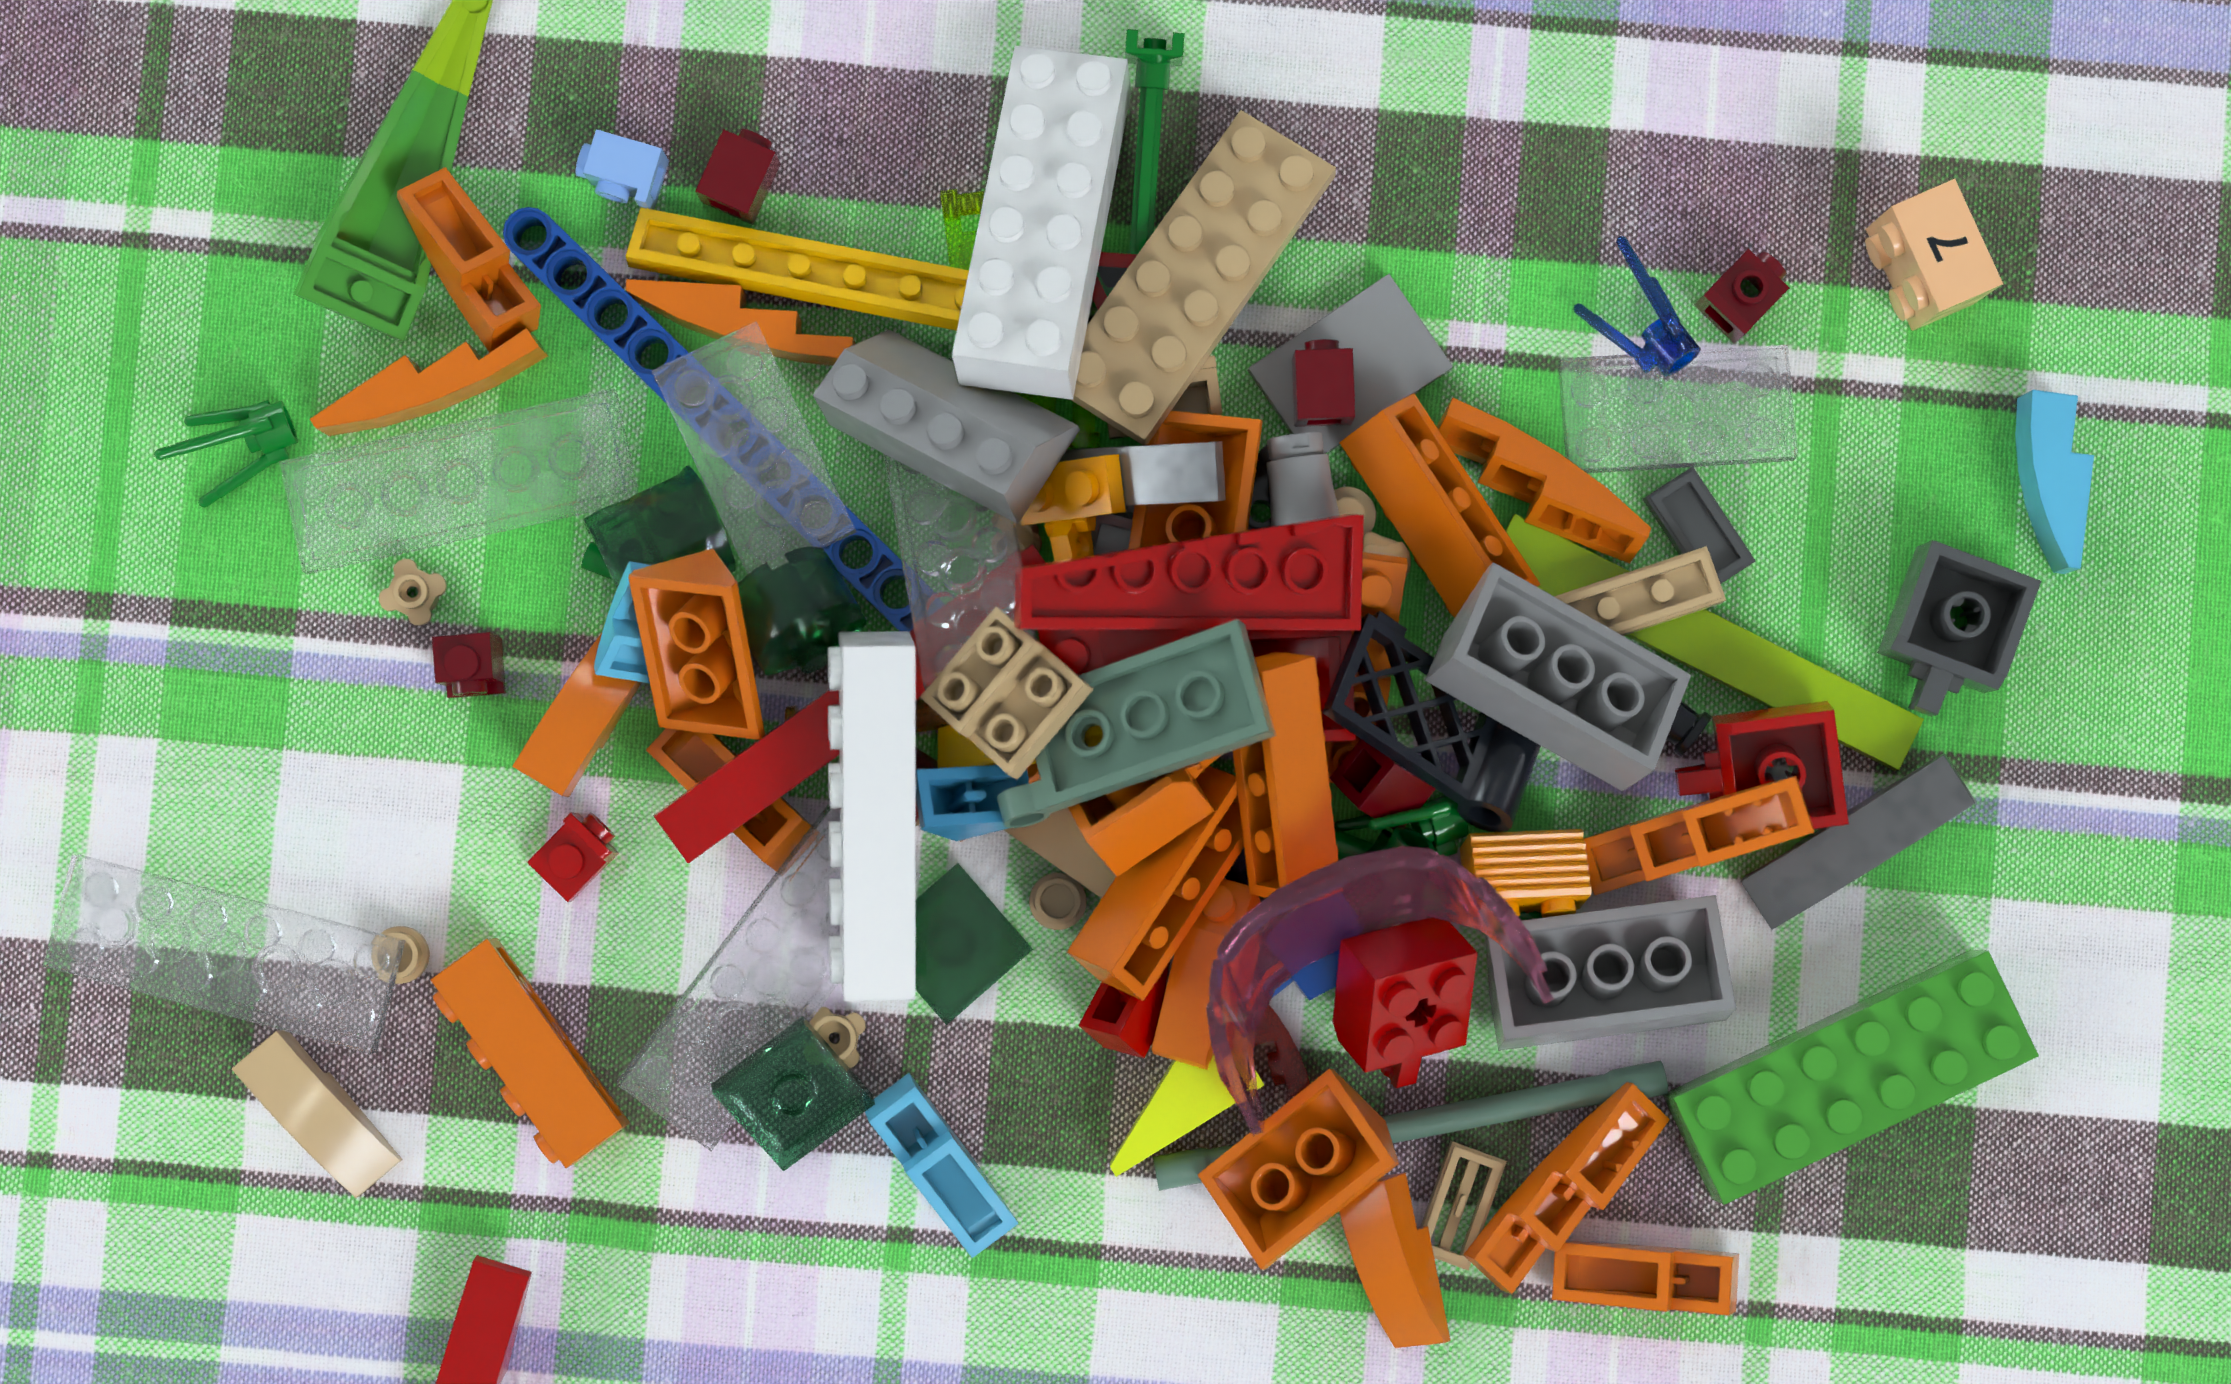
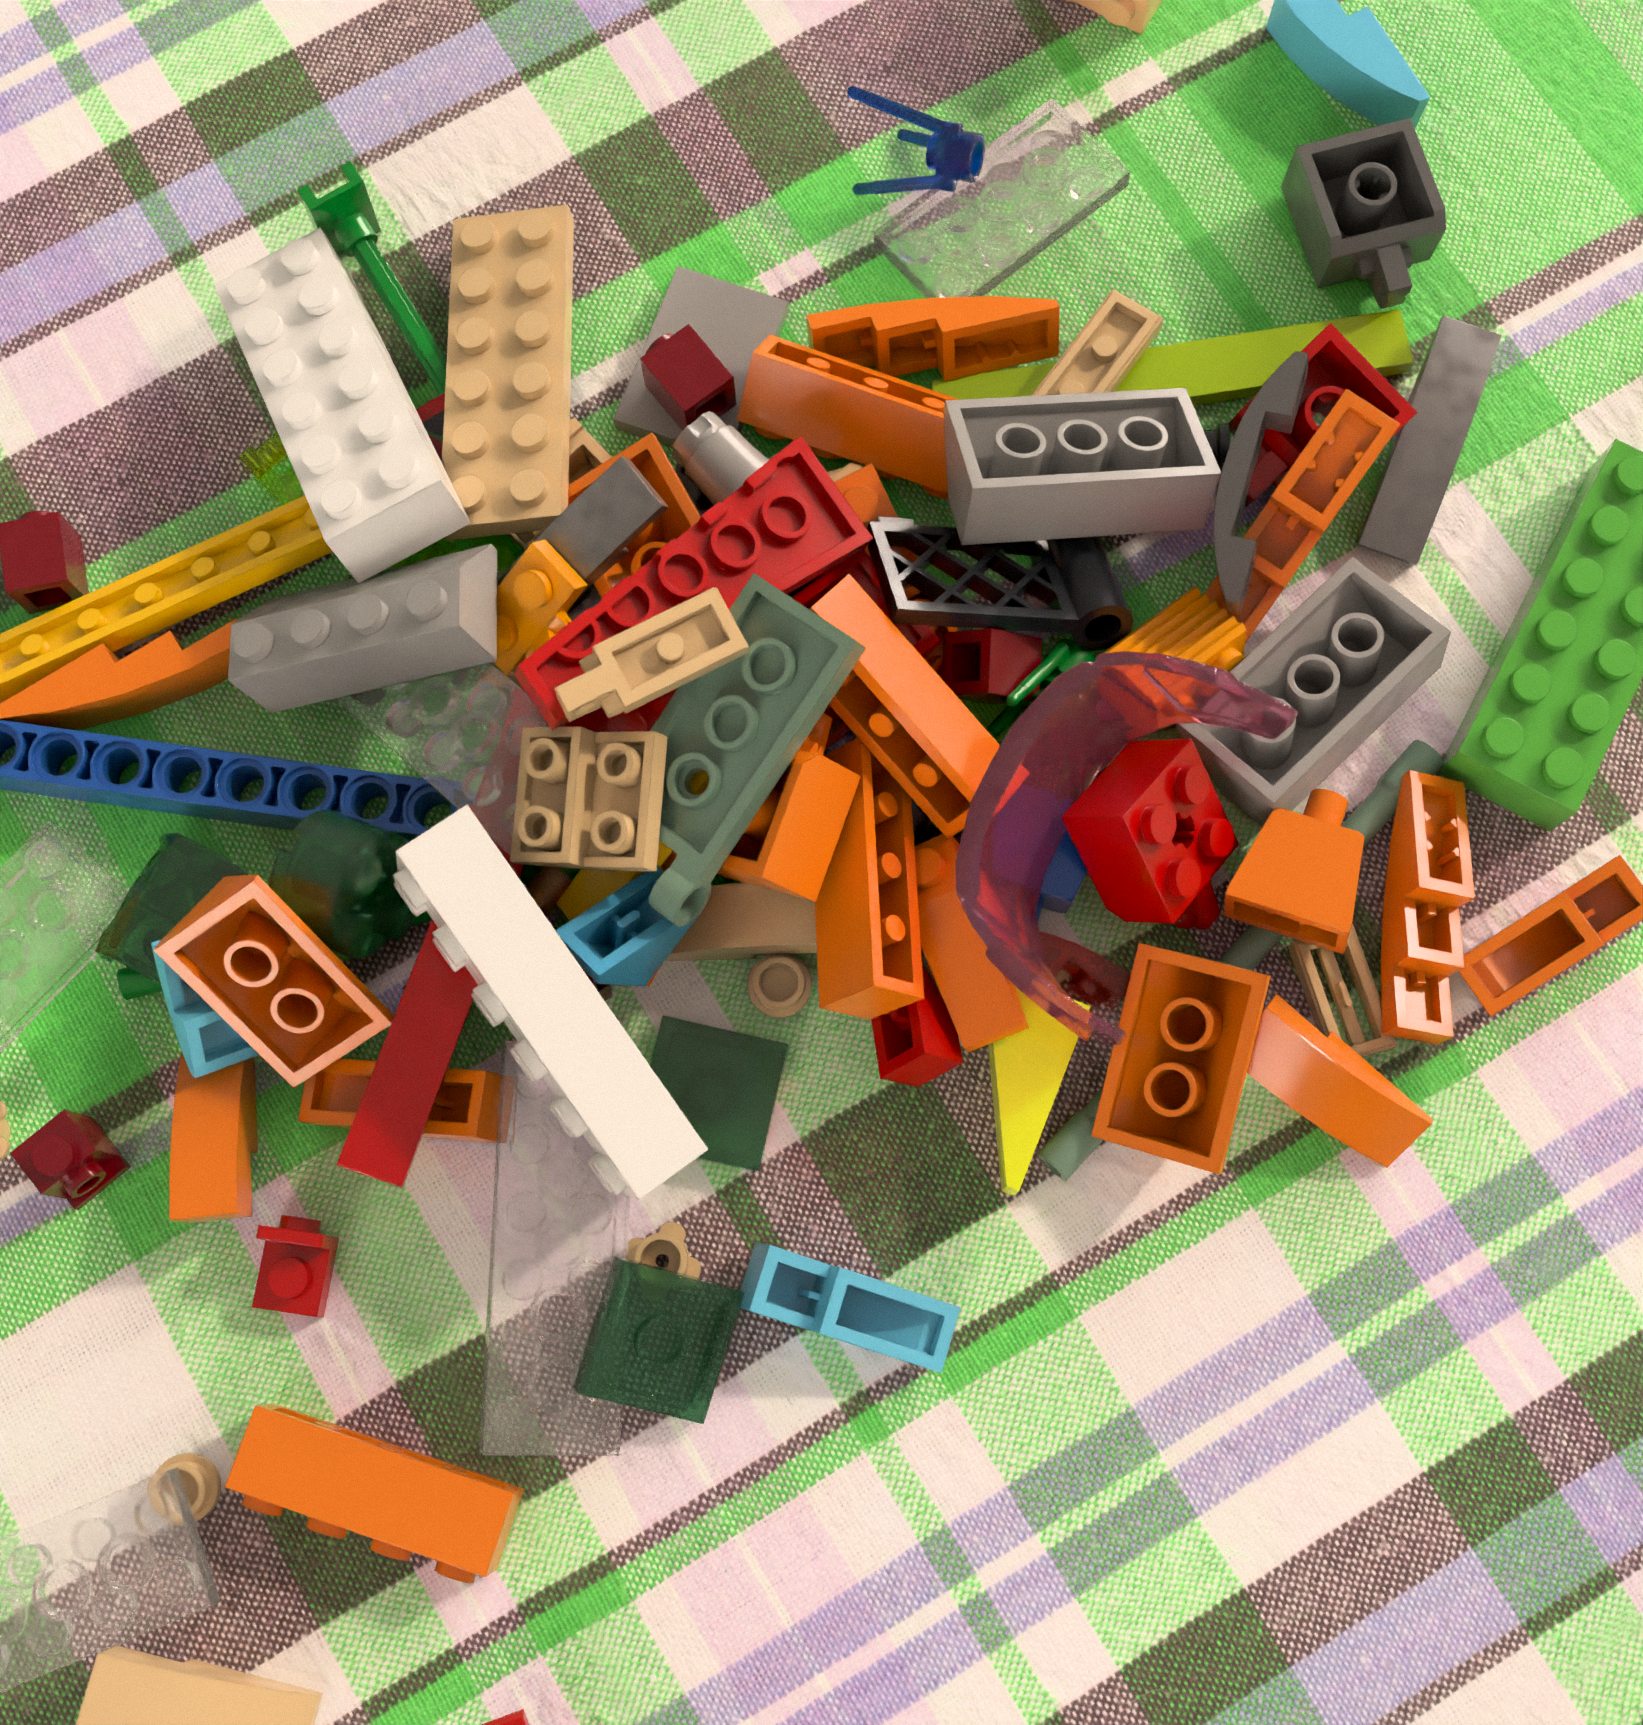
camera: 30 degrees left, 10 degrees down
(753, 449) = (204, 766): clear plate -> none
(1122, 635) = (654, 657): none -> tan hinge
(1490, 1101) = (1301, 874): none -> orange torso
(1617, 836) = (1271, 409): none -> dark grey slope
(1696, 520) = (1084, 284): dark grey tile -> none
(1730, 308) = (986, 81): dark red brick -> none

